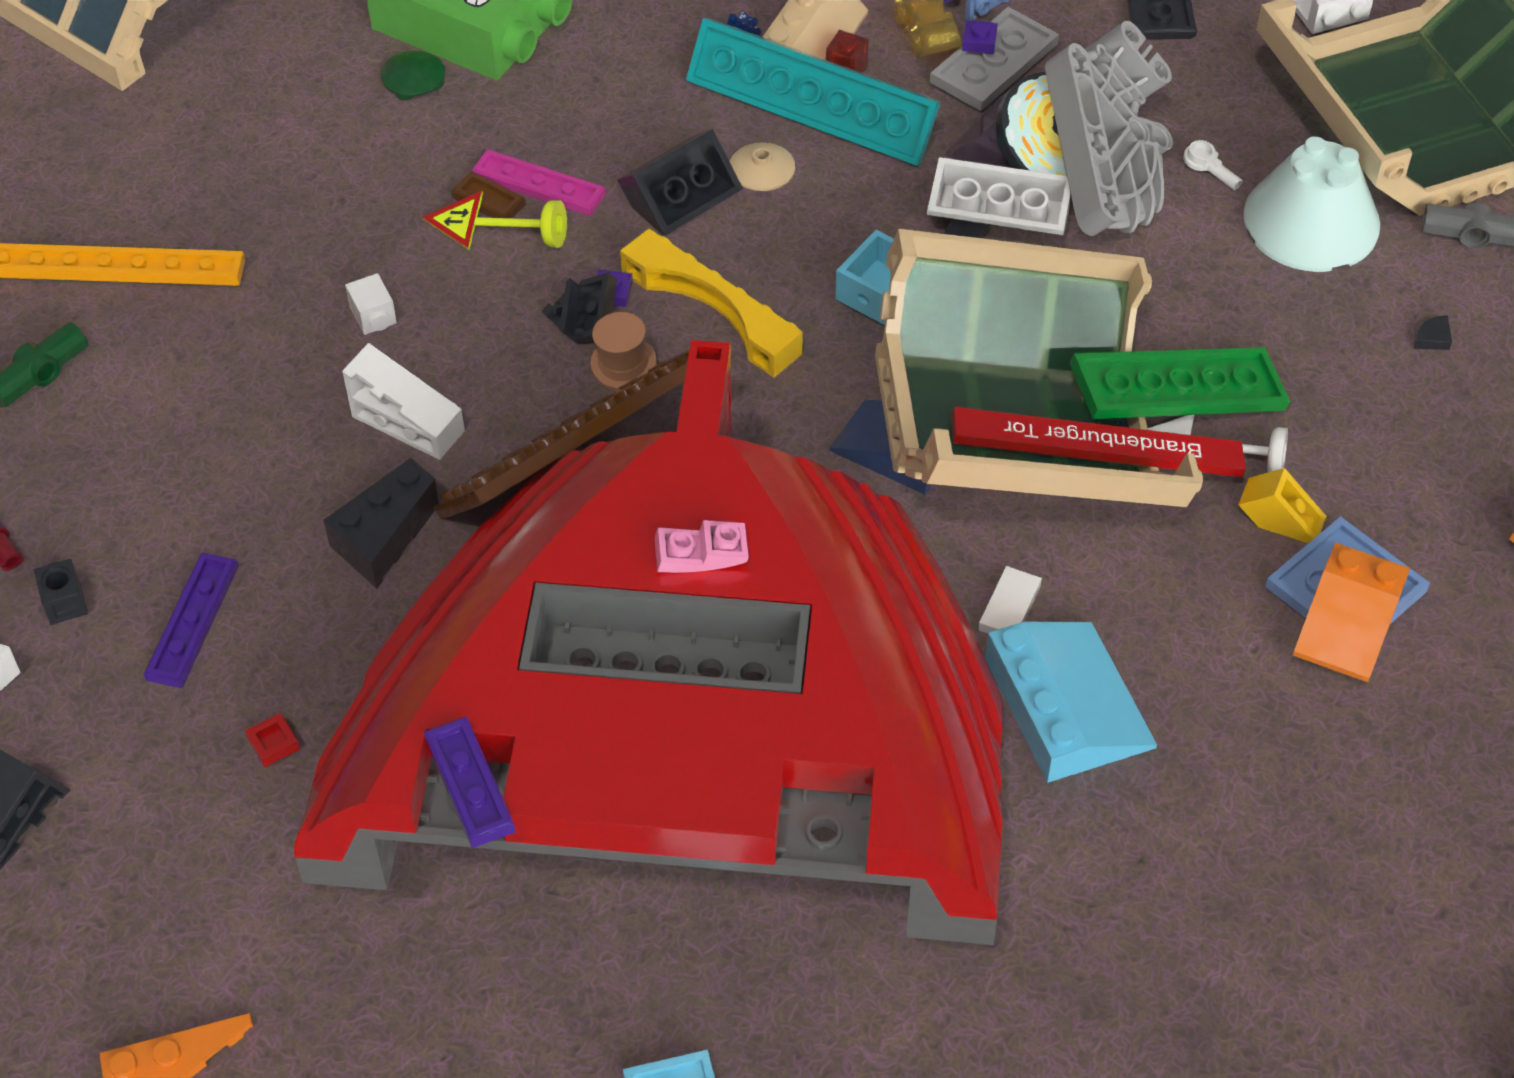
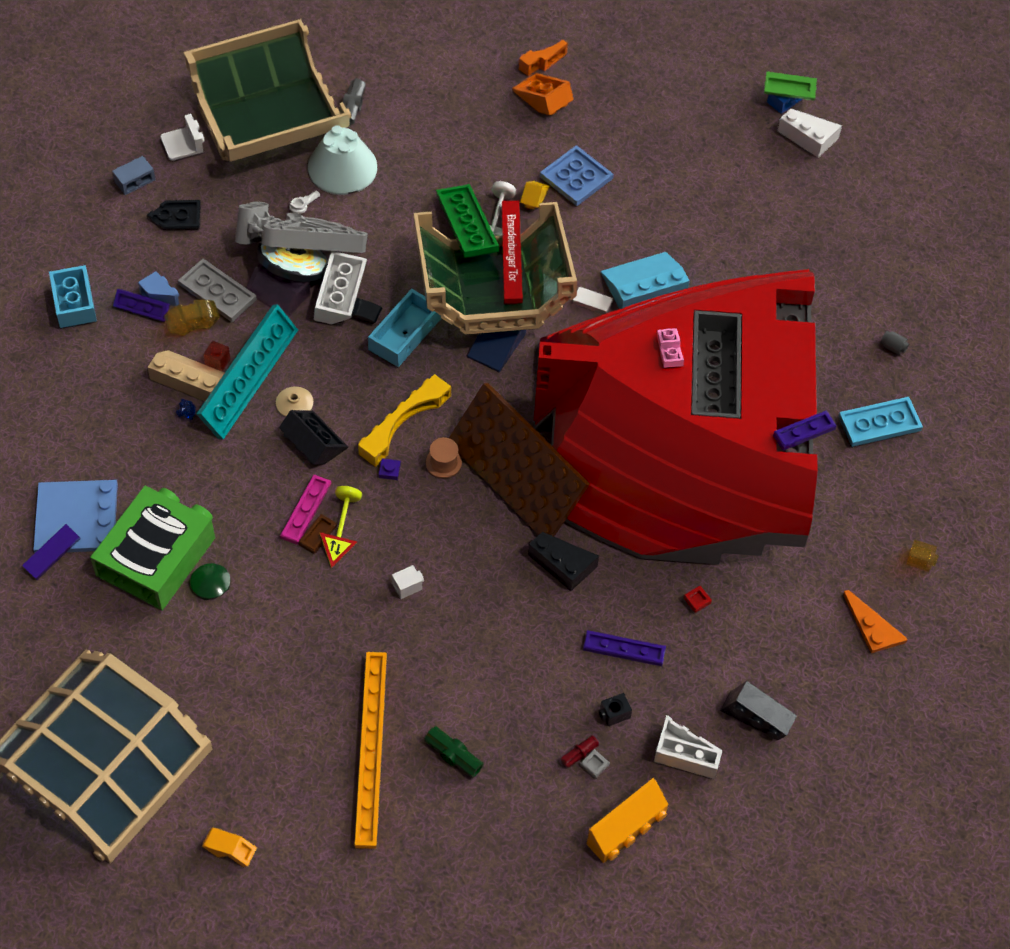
camera: 95 degrees left, 5 degrees up
(401, 403) = (485, 557): white wedge -> none
(583, 306) = (410, 478): black slope -> none
(979, 37) = (206, 291): dark purple plate -> none
(1351, 612) = (600, 170): orange slope -> none
(1434, 334) = (421, 127): black tile -> none

